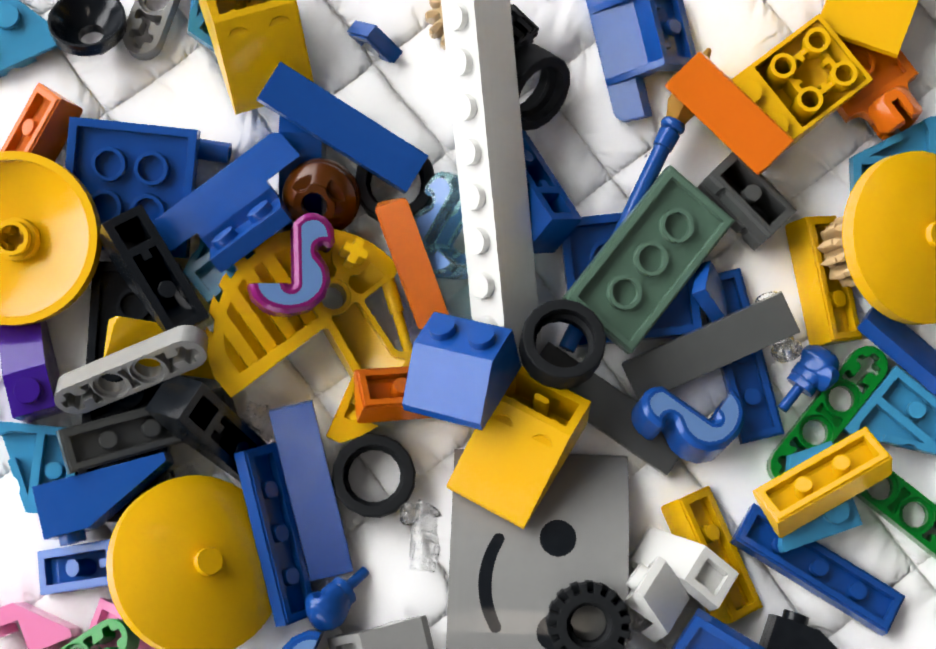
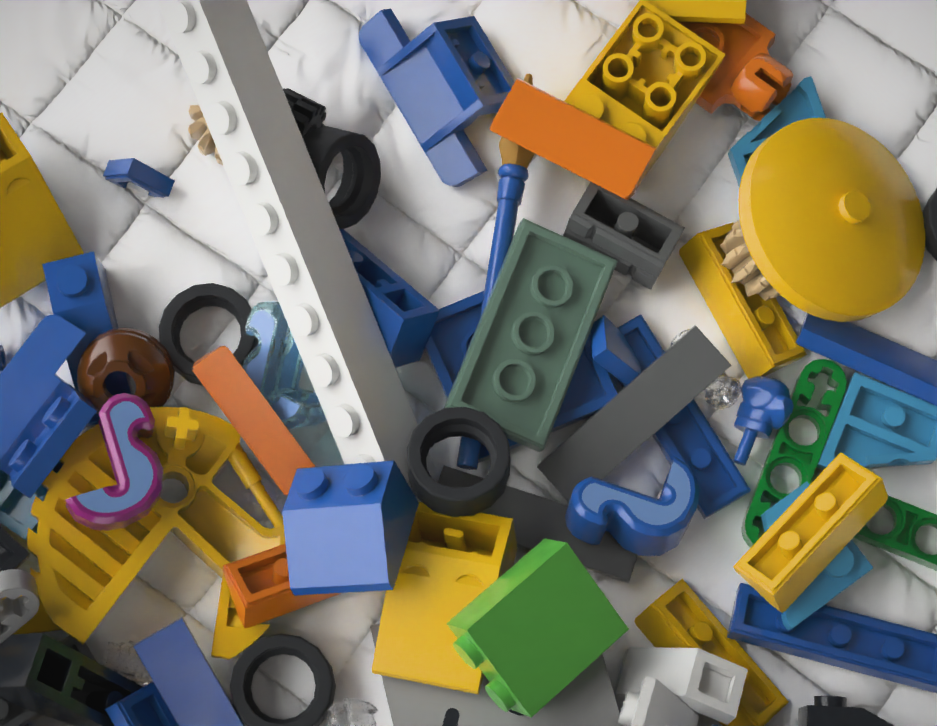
camera: 15 degrees left, 5 degrees down
(342, 127) = (126, 286): blue tile -> none
(584, 492) = (536, 628): none -> bright green brick

